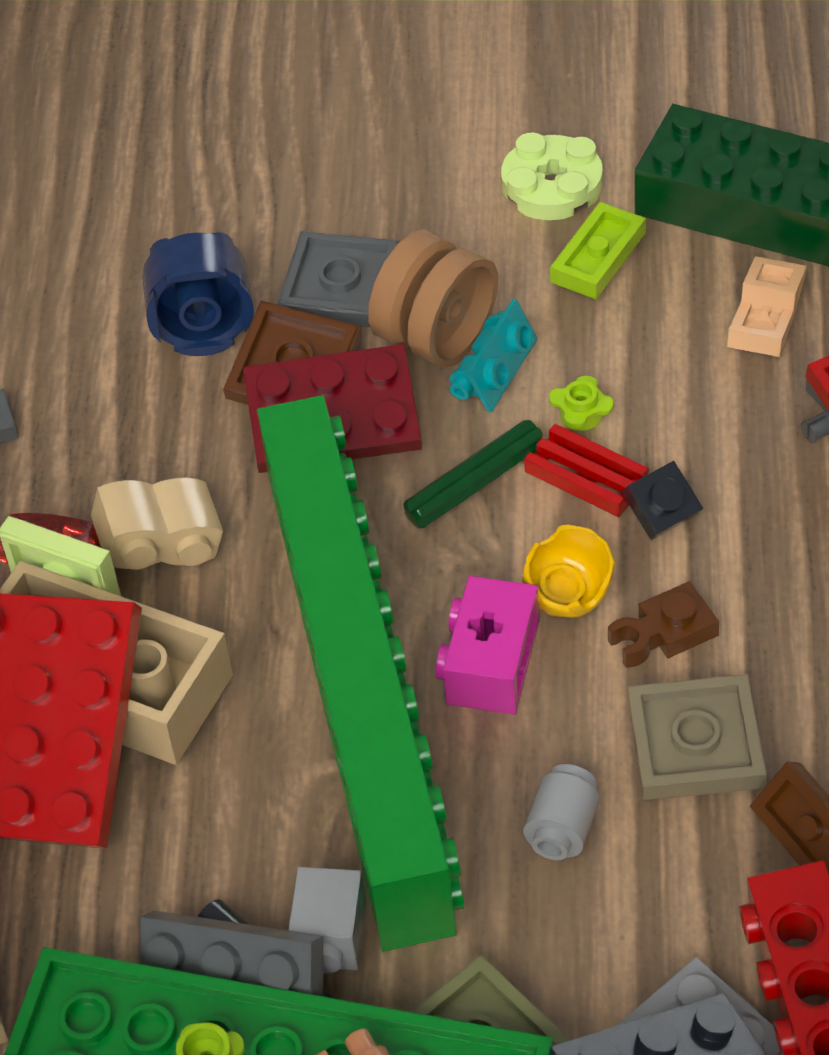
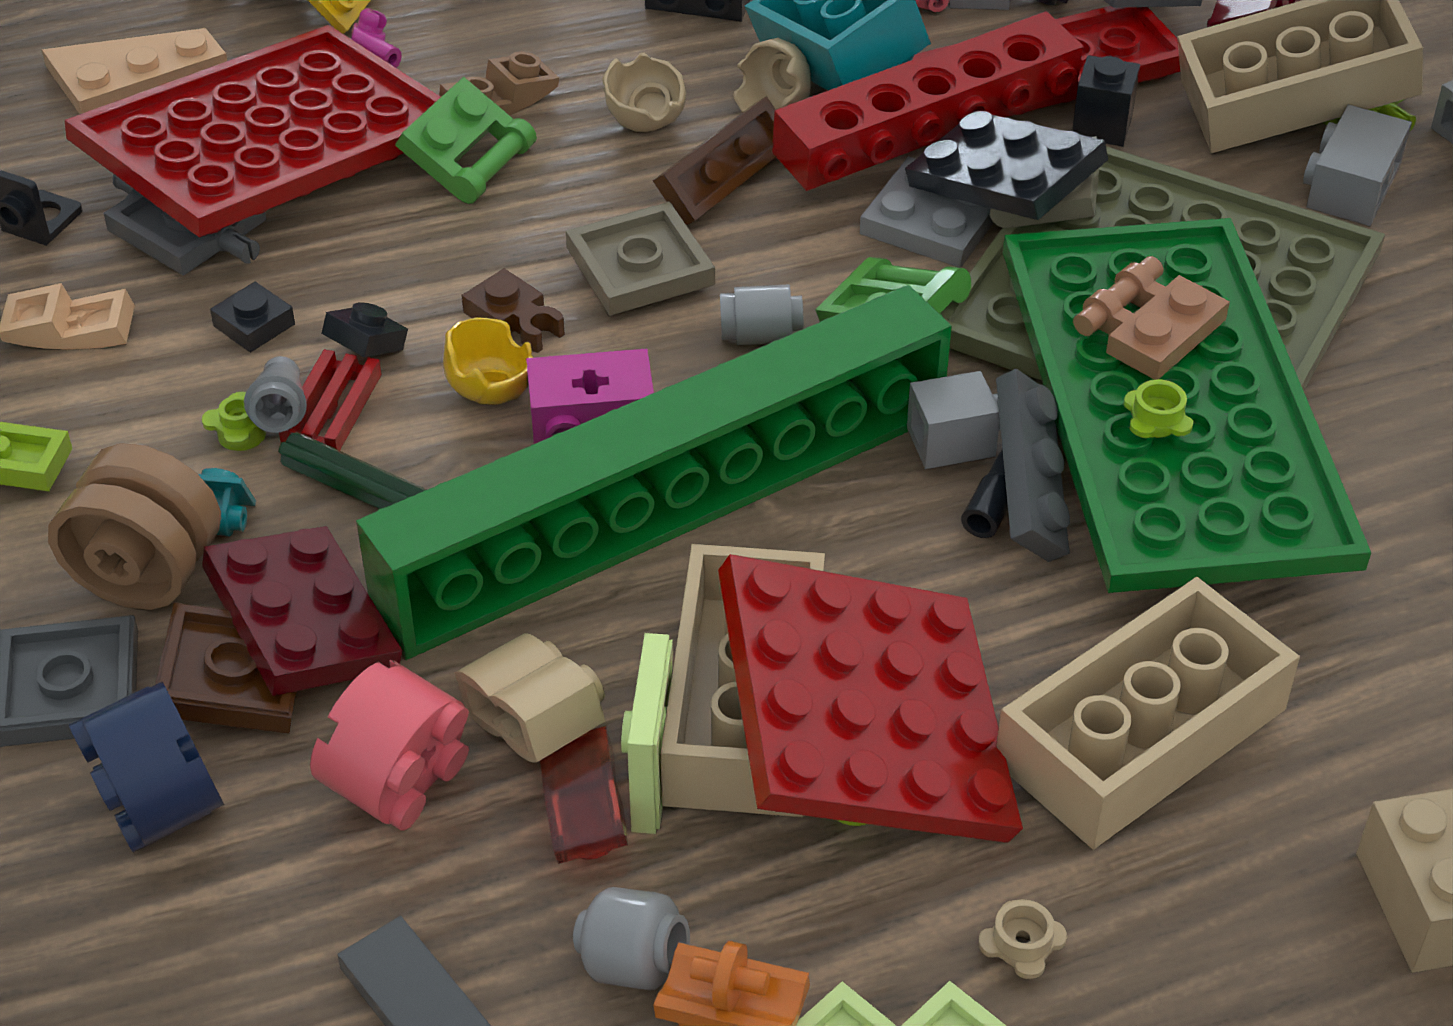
camera: 115 degrees left, 5 degrees down
(143, 424) = (391, 743): none -> coral brick
(524, 912) = (878, 277): none -> bright green plate
(577, 414) = (276, 396): none -> light grey cone
(727, 432) = (252, 316): none -> black plate

